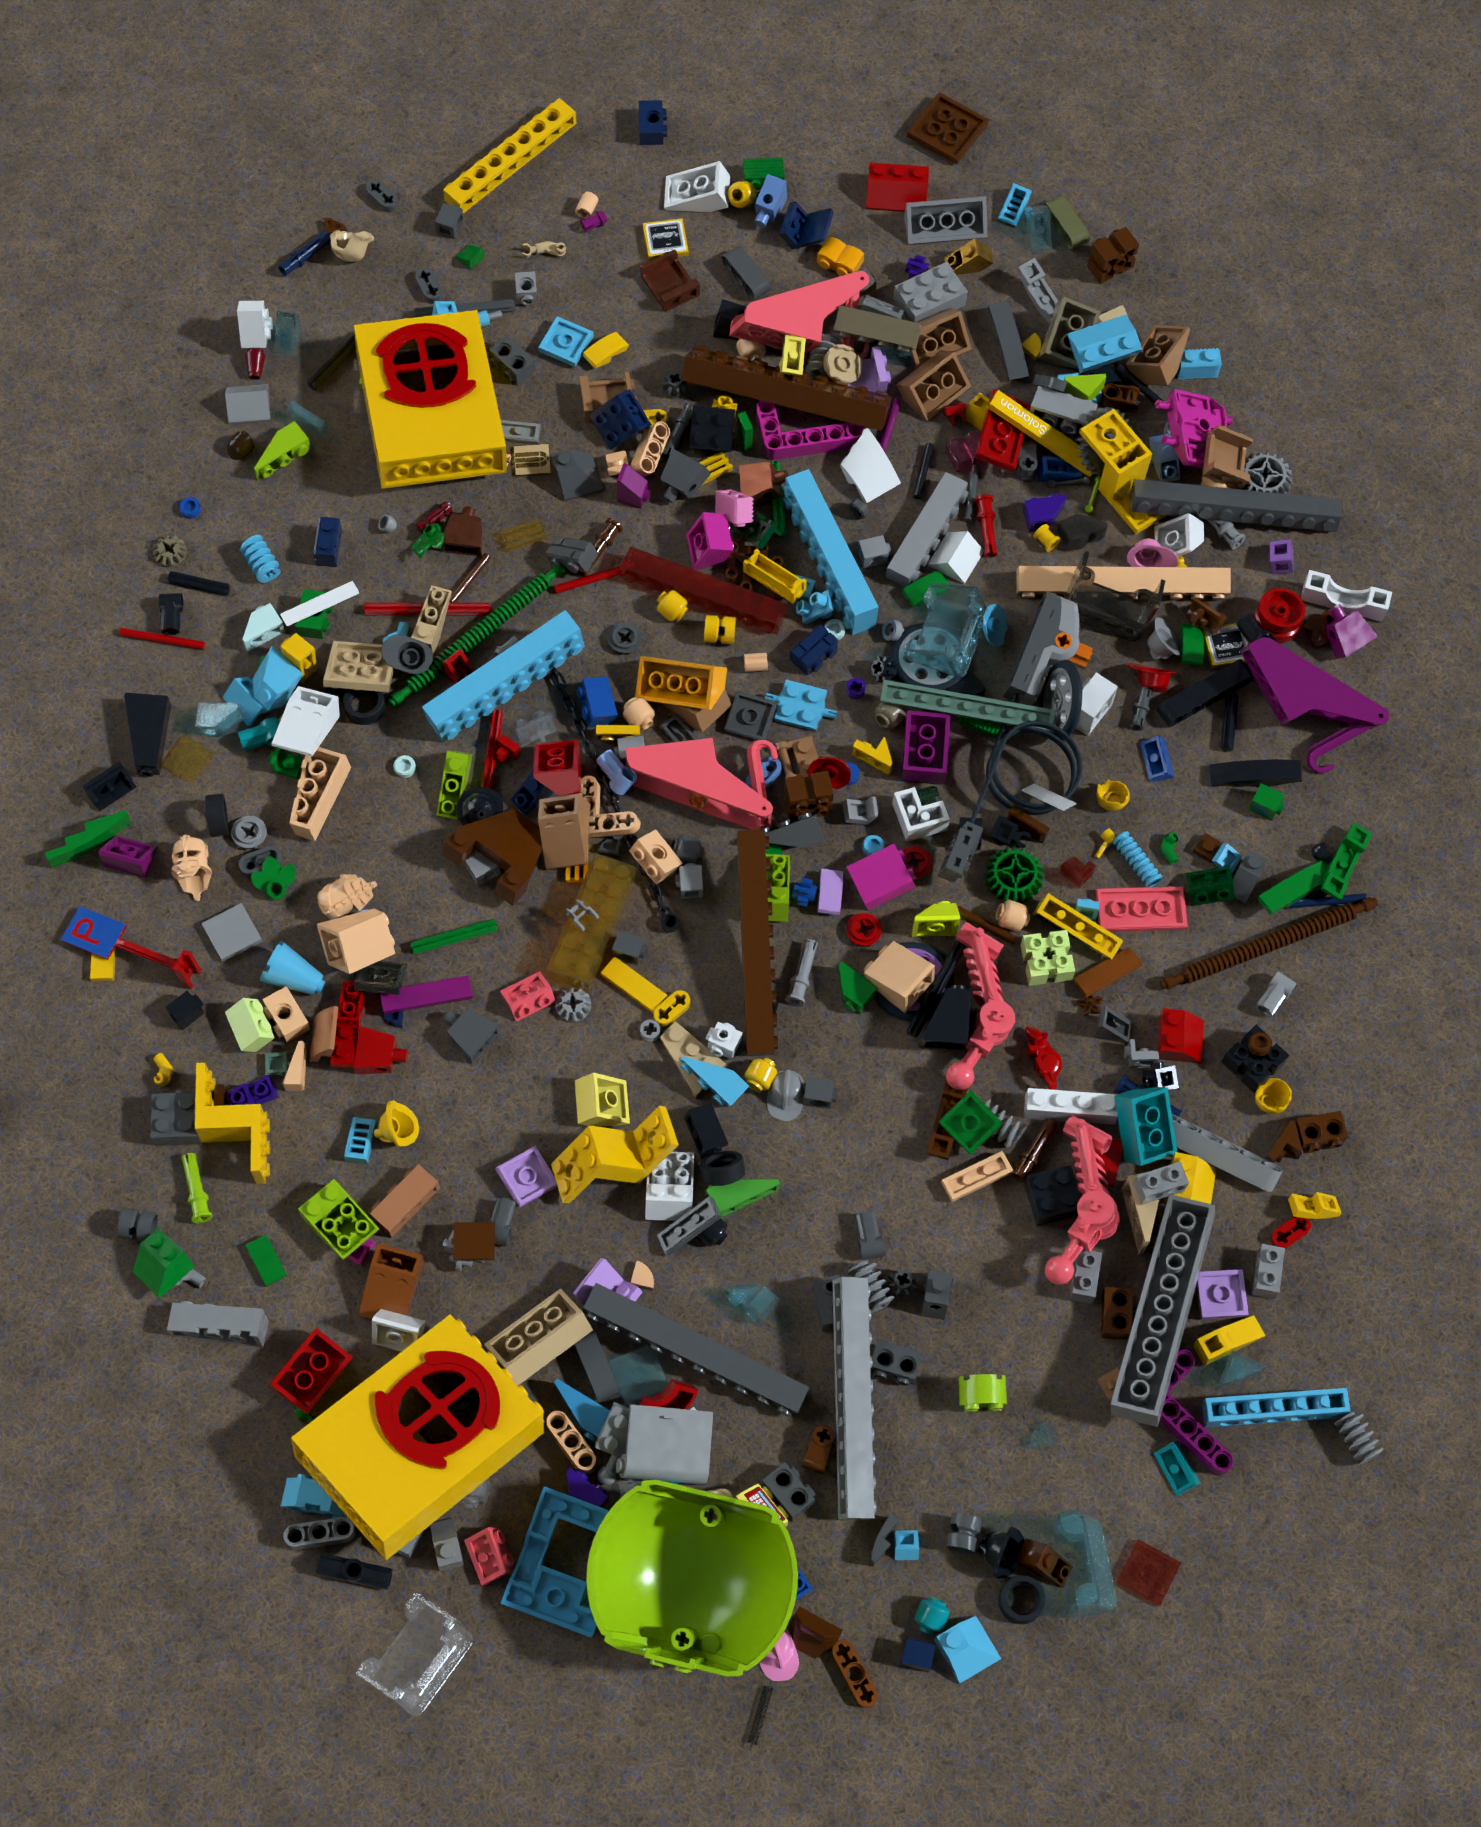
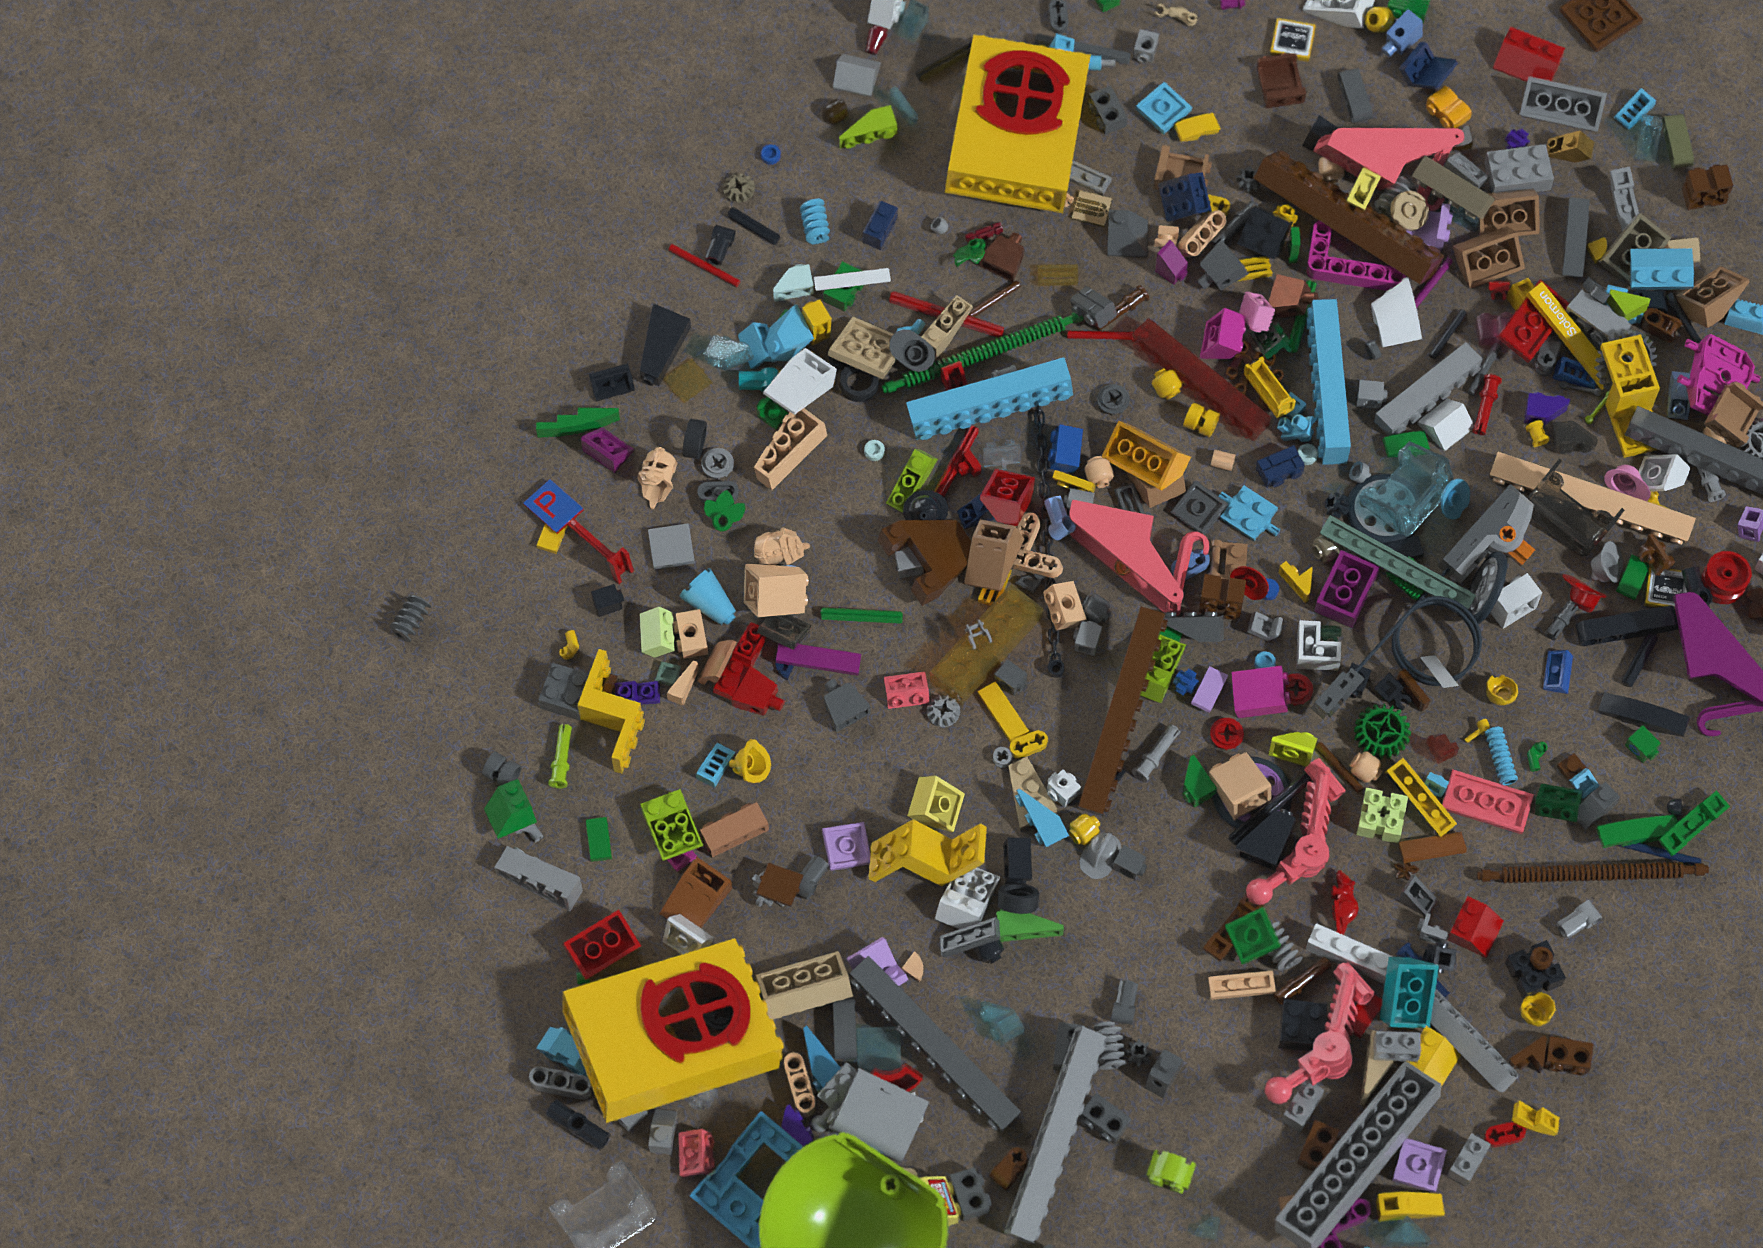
camera: 25 degrees right, 0 degrees up
(852, 693) = (1300, 518): dark purple bush -> none

